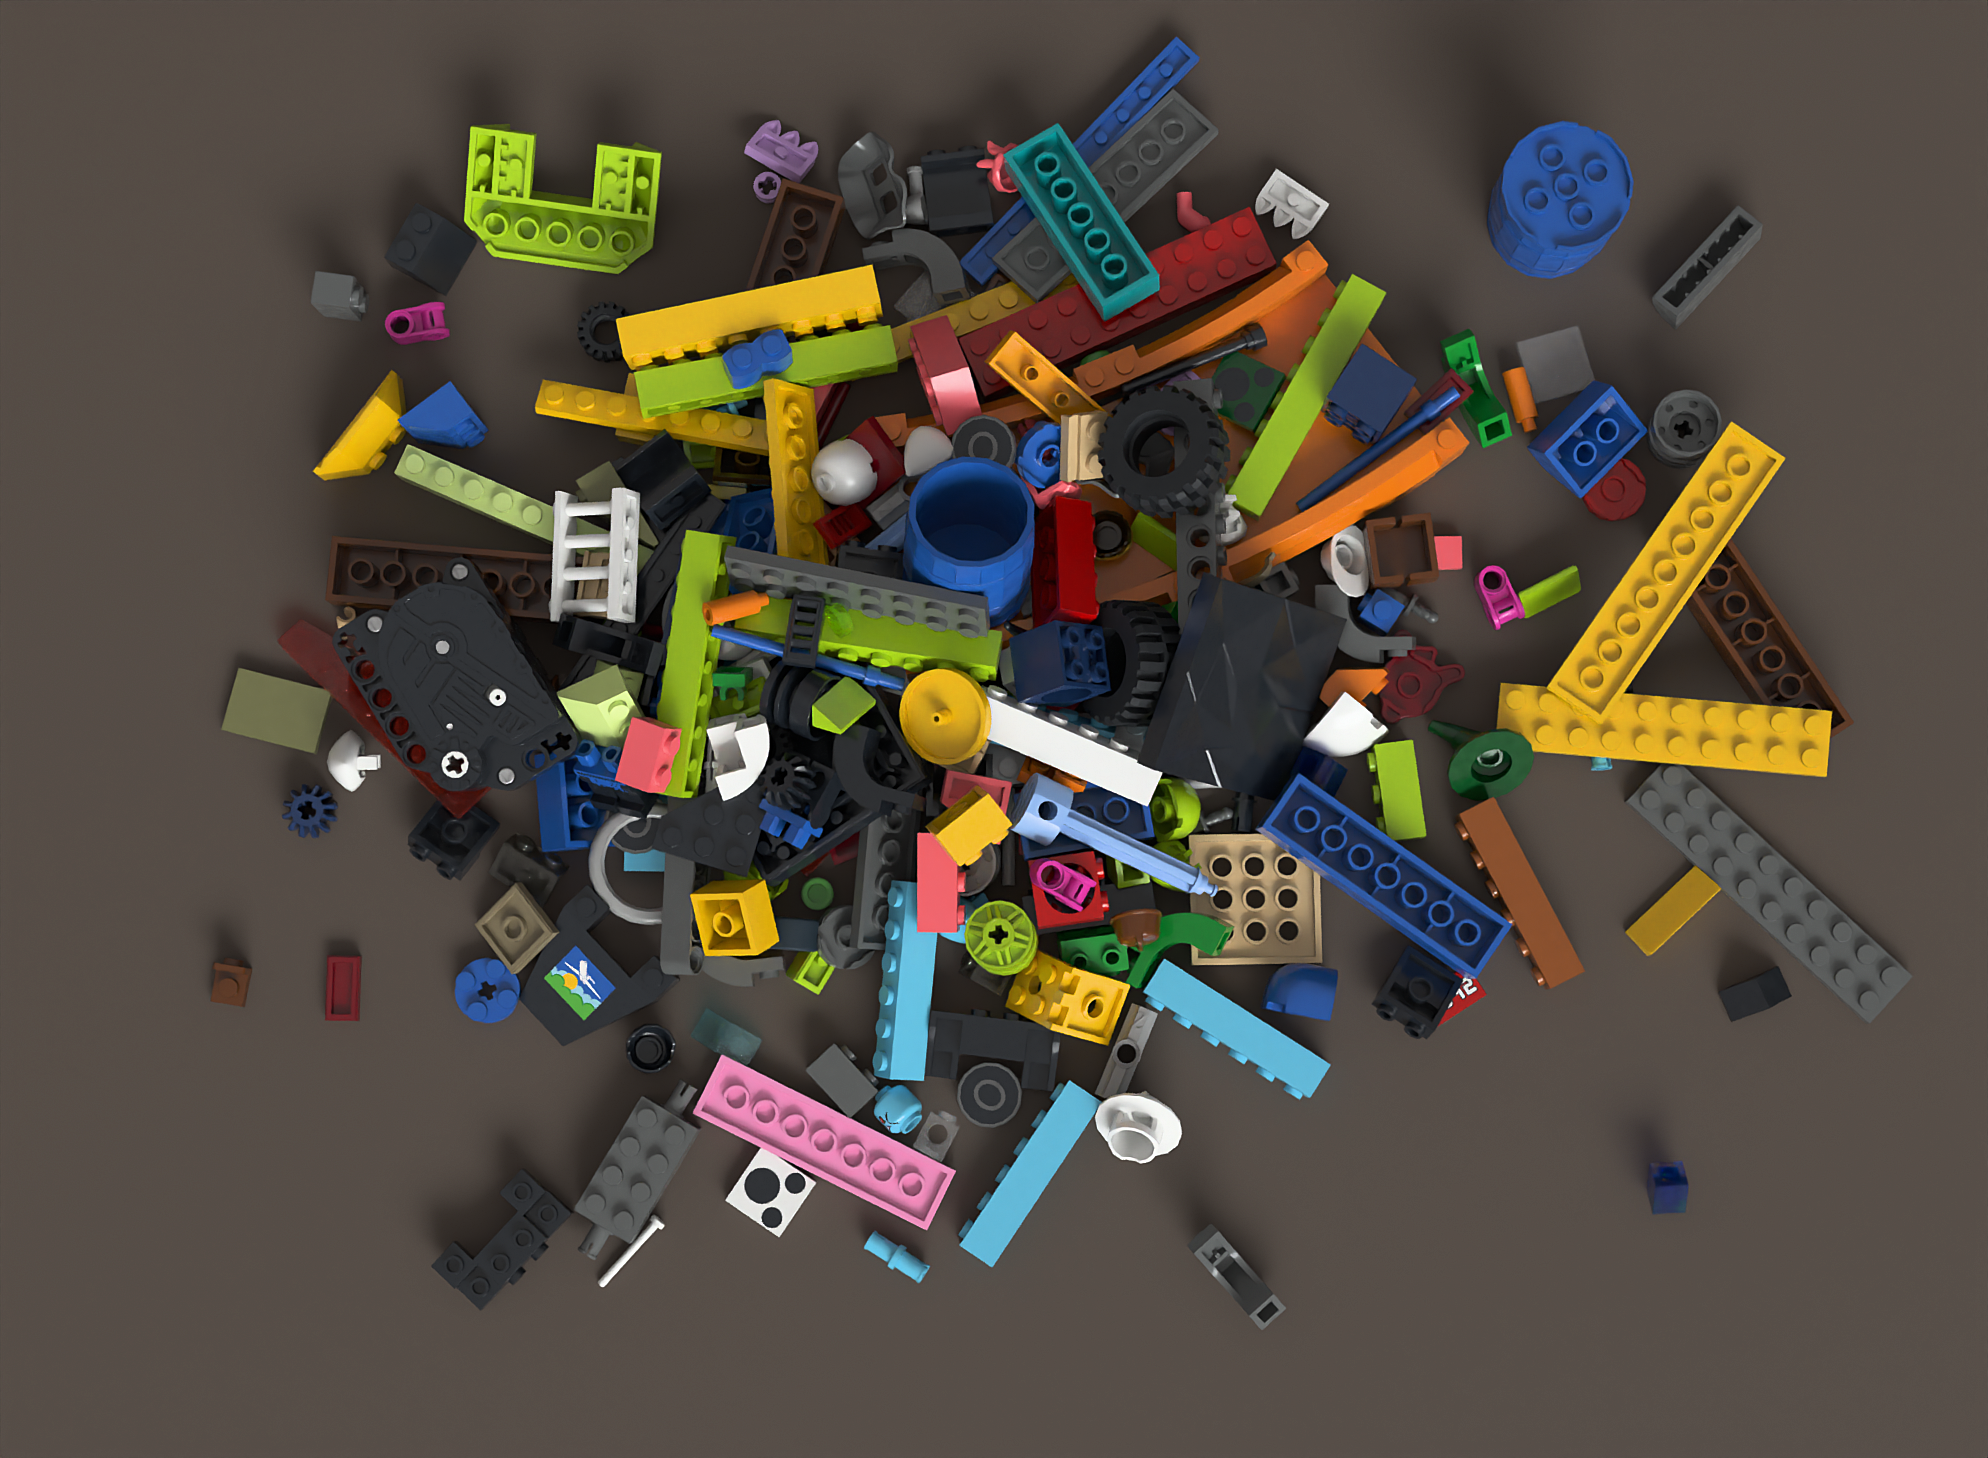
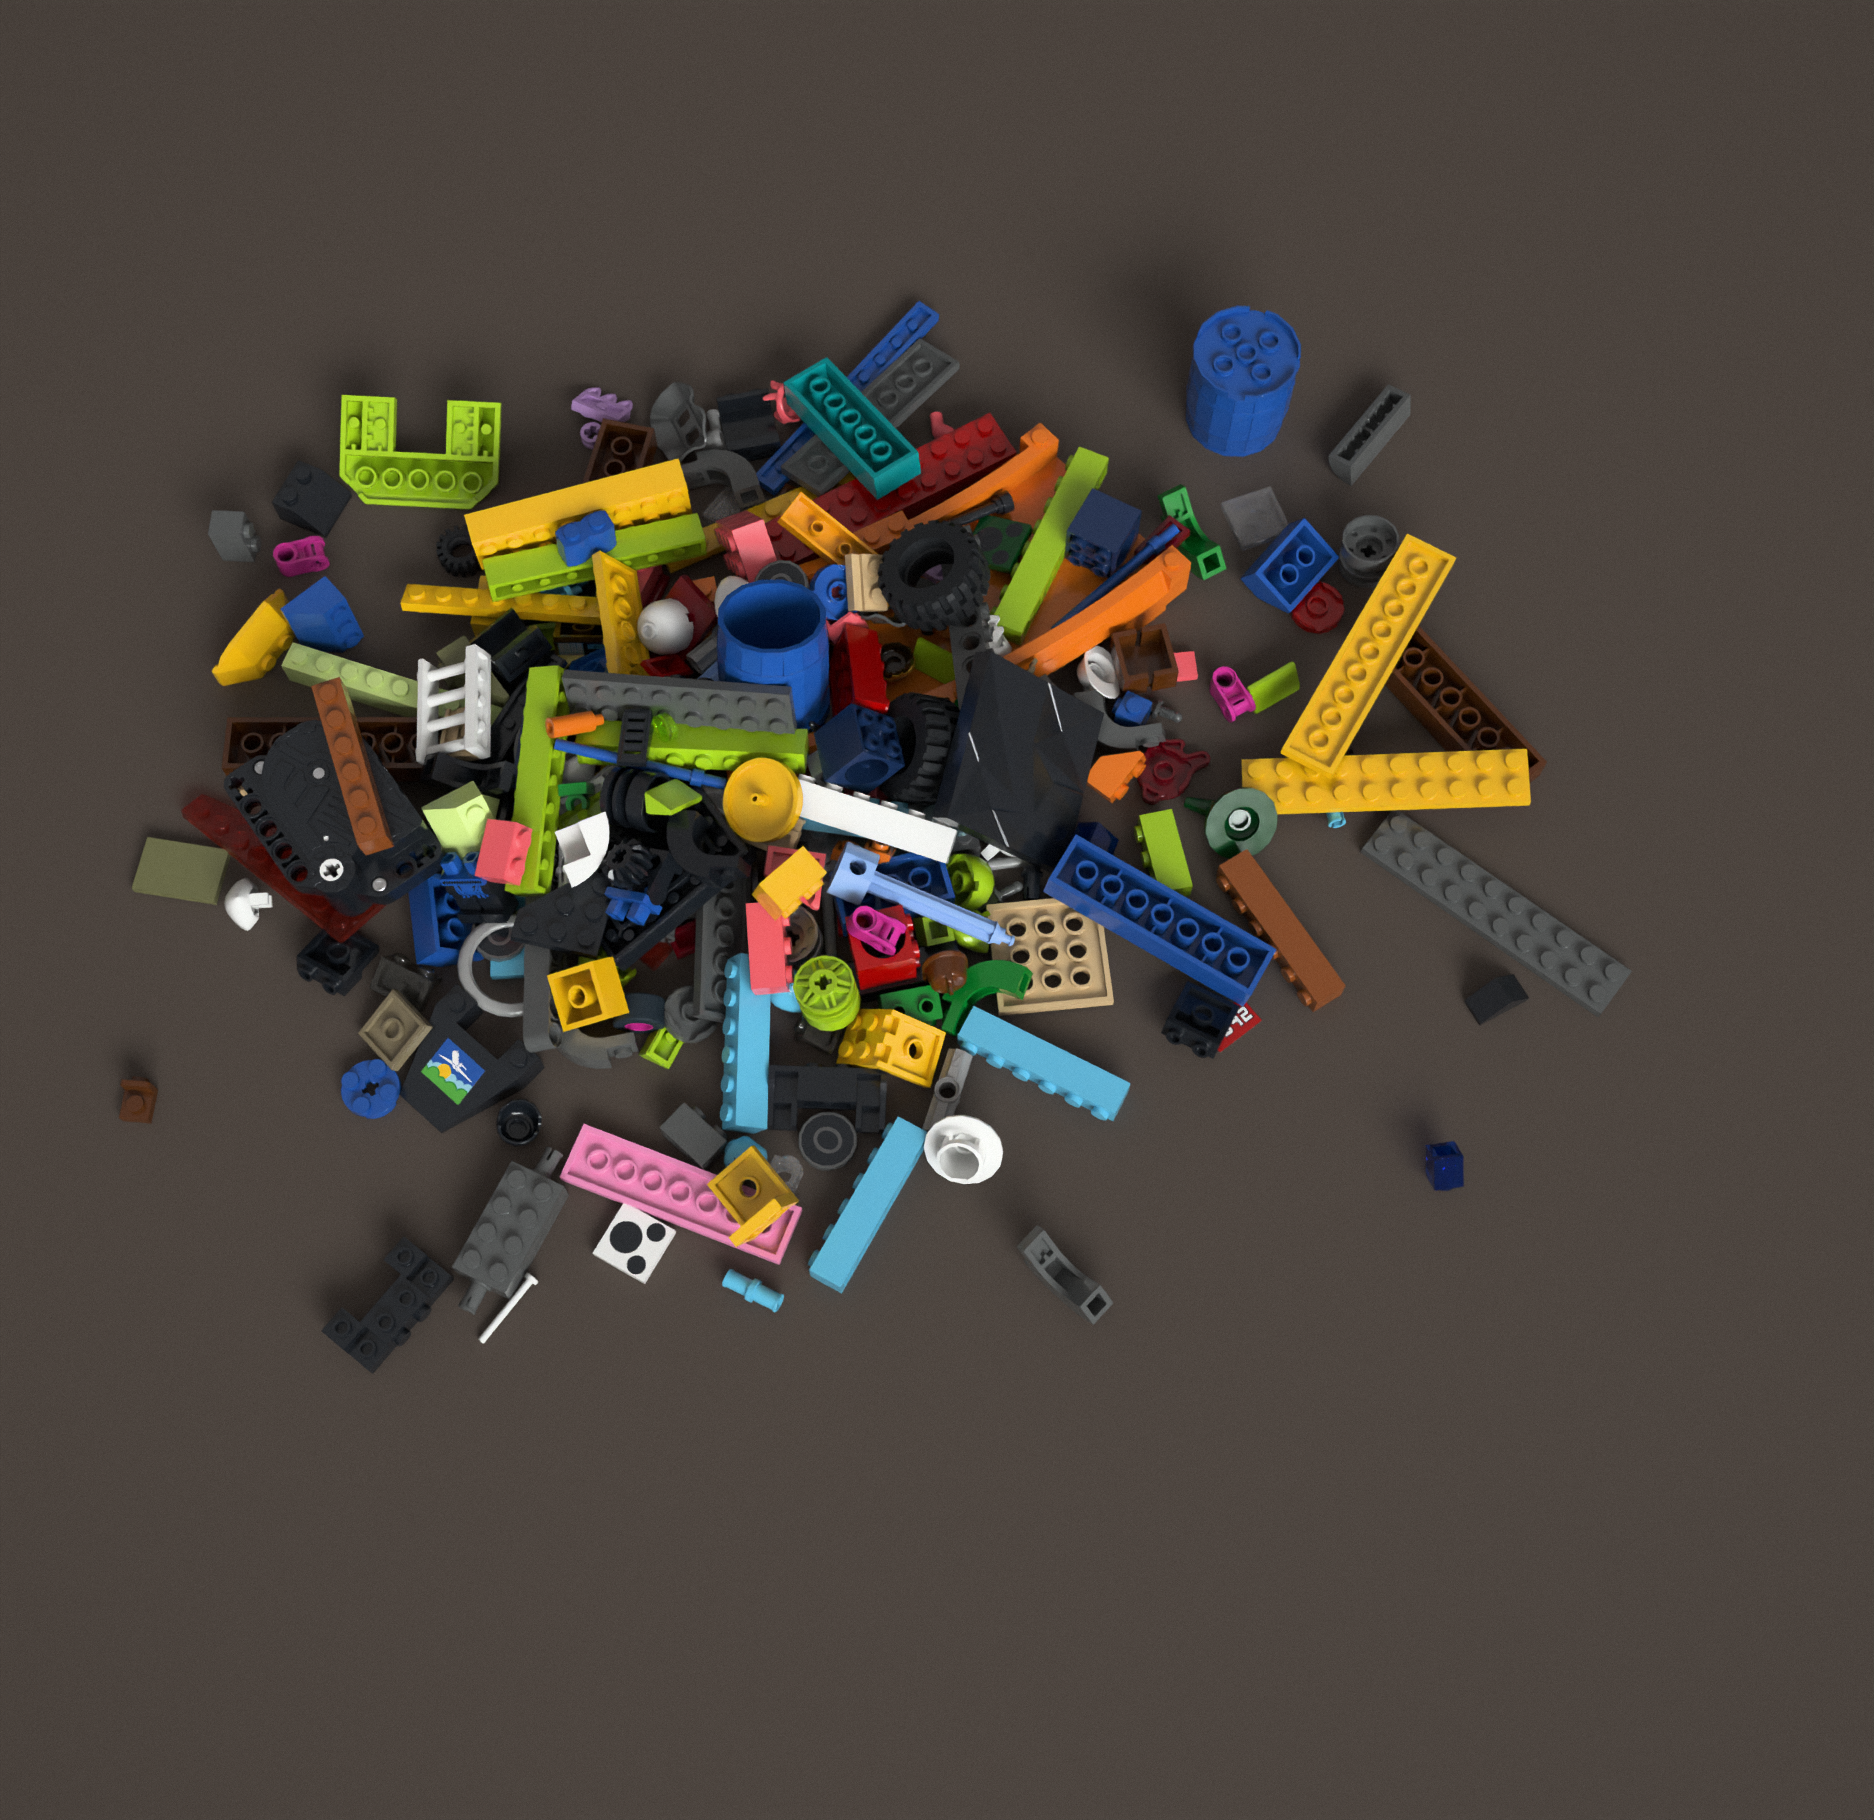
camera: 10 degrees left, 15 degrees down
(319, 802) = (205, 940): dark blue gear -> none
(343, 988) = (240, 1098): dark red tile -> none
(482, 648) = (352, 766): none -> dark orange brick
(726, 1037) = (582, 1108): clear light blue slope -> none
(817, 893) = (663, 982): bright green tile -> none
(908, 1179) = (755, 1211): none -> yellow bracket
(1290, 203) = (1023, 412): white plate -> none
(1301, 991) = (1096, 1022): blue brick -> none
(1345, 729) = (1114, 803): white brick -> none
(1521, 398) = (1230, 543): orange cylinder -> none
(1672, 910) = (1414, 935): yellow slope -> none

